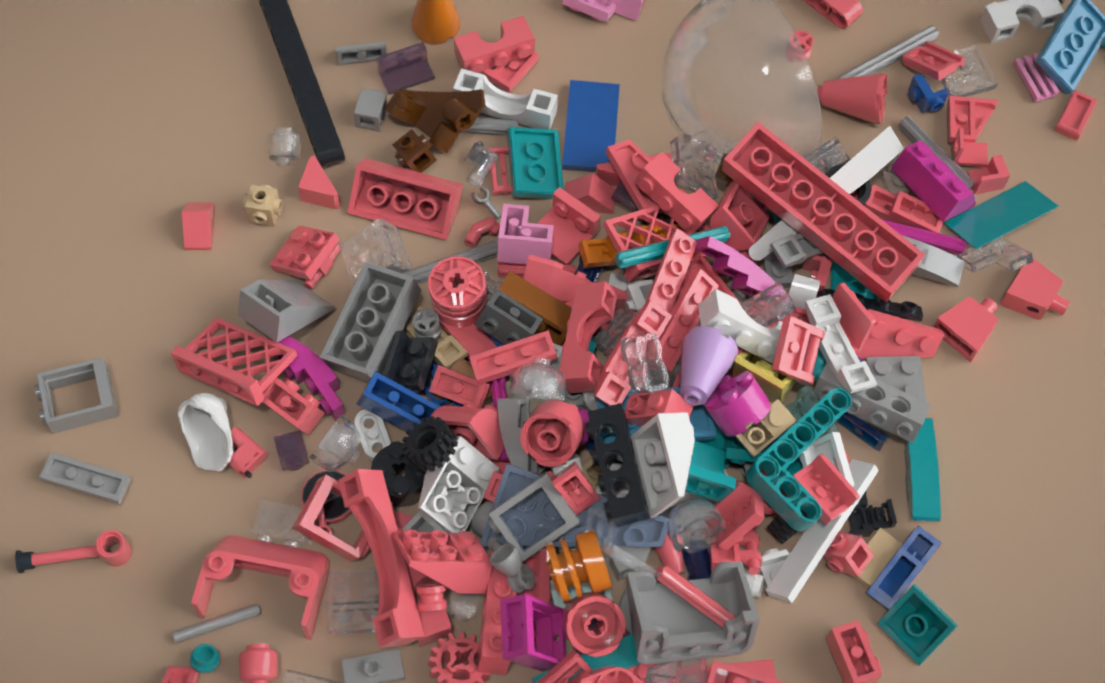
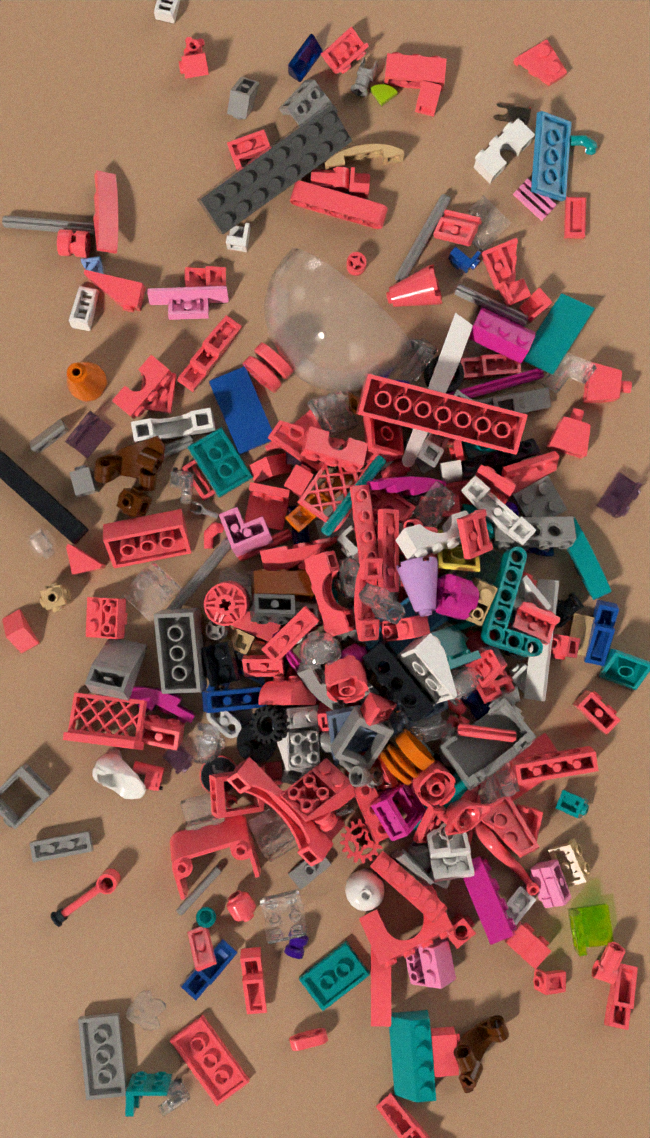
camera: 25 degrees left, 25 degrees up
(589, 55) = (210, 353): none -> coral slope
(613, 206) = (299, 480): none -> coral brick
(645, 90) = (267, 366): none -> coral wheel
(998, 421) = (619, 495): none -> clear purple bracket

